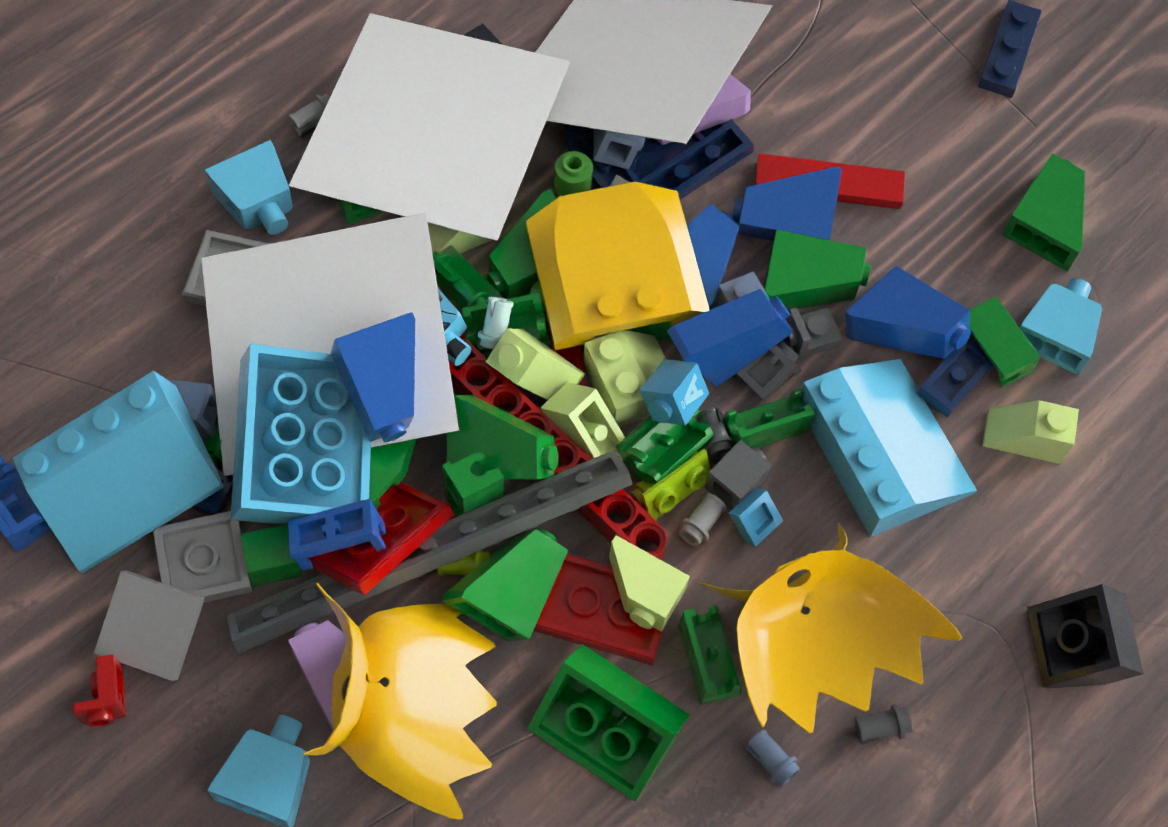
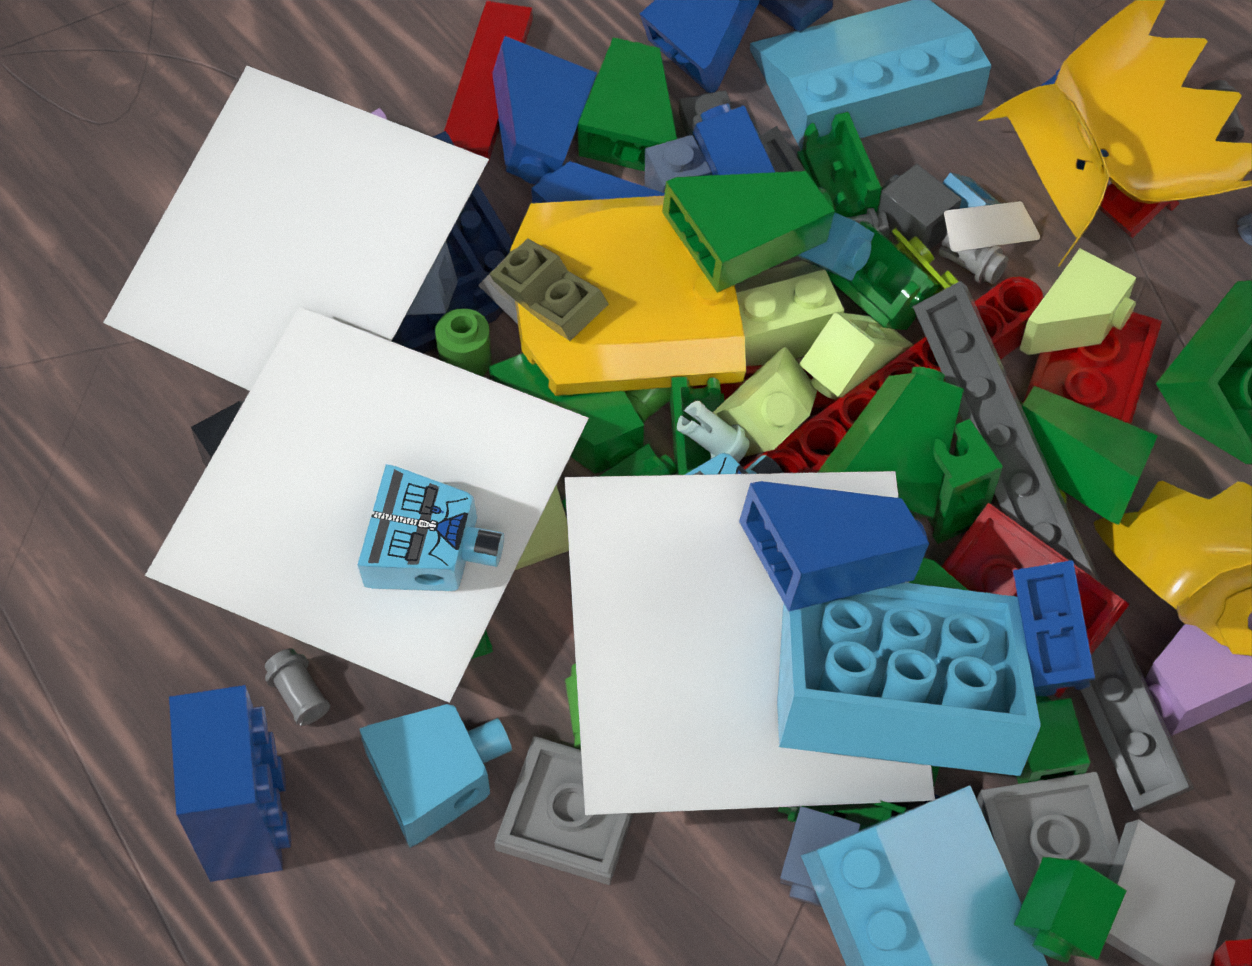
camera: 80 degrees left, 5 degrees down
(135, 550) = (1069, 909): none -> green brick
(220, 67) = (228, 783): none -> blue brick
(393, 146) = (423, 535): none -> medium azure torso
(595, 203) = (548, 290): none -> olive slope
(655, 316) = (747, 221): none -> green slope
(709, 655) = (1164, 265): green hinge -> none
(722, 524) = (989, 226): none -> white sticker

